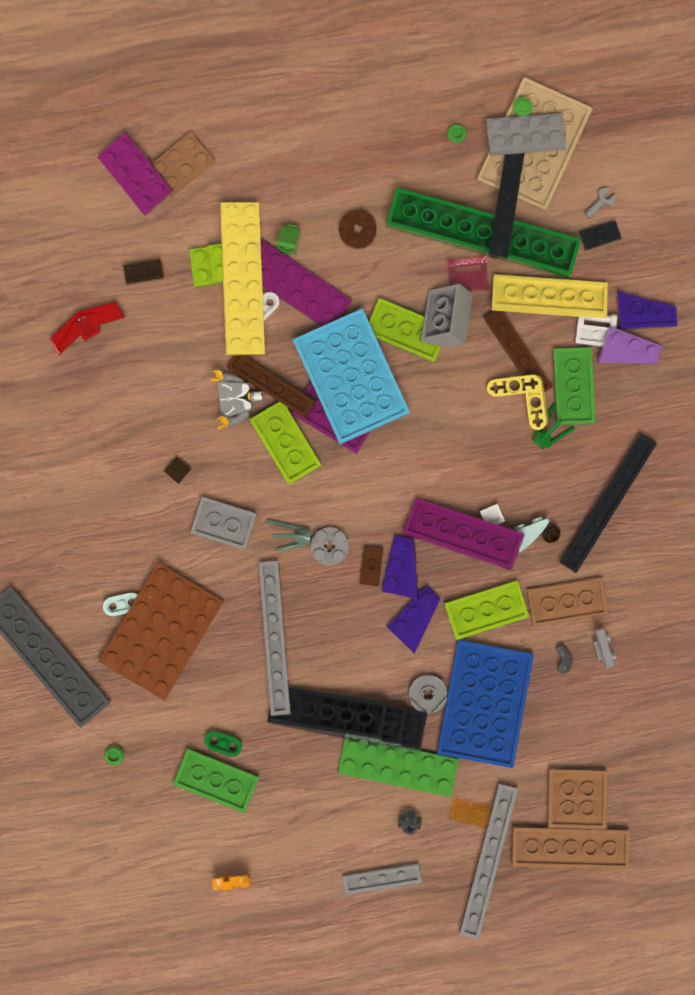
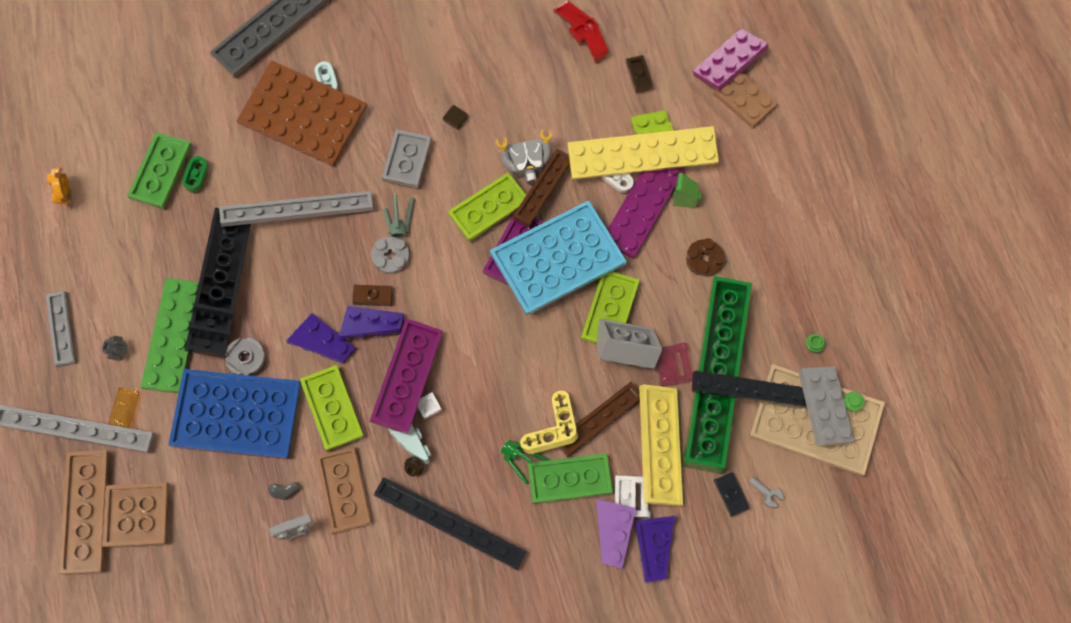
camera: 80 degrees right, 15 degrees down
(114, 755) = (185, 83): bright green plate -> none

